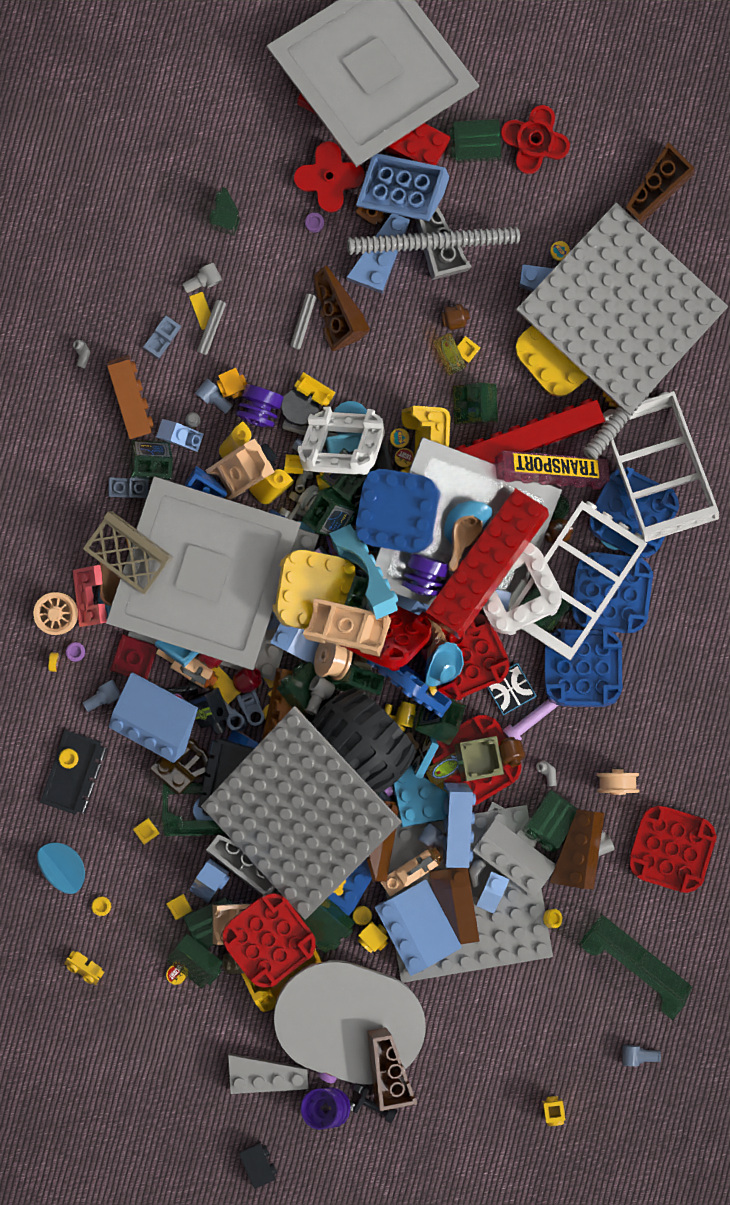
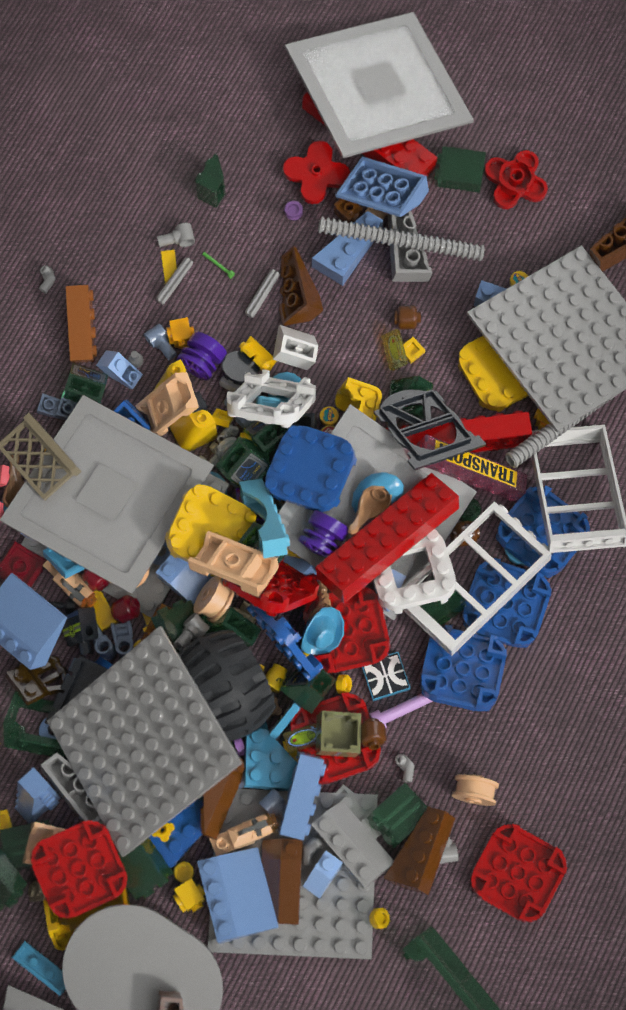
camera: 15 degrees right, 15 degrees down
(162, 337) = (126, 281): sand blue slope -> none
(252, 1030) = (40, 967): none -> dark azure tile
(266, 306) = (230, 273): none -> bright green piece
(351, 374) = (295, 348): none -> white slope
(472, 706) = (343, 684): none -> yellow tile
(501, 477) = (421, 457): none -> black window

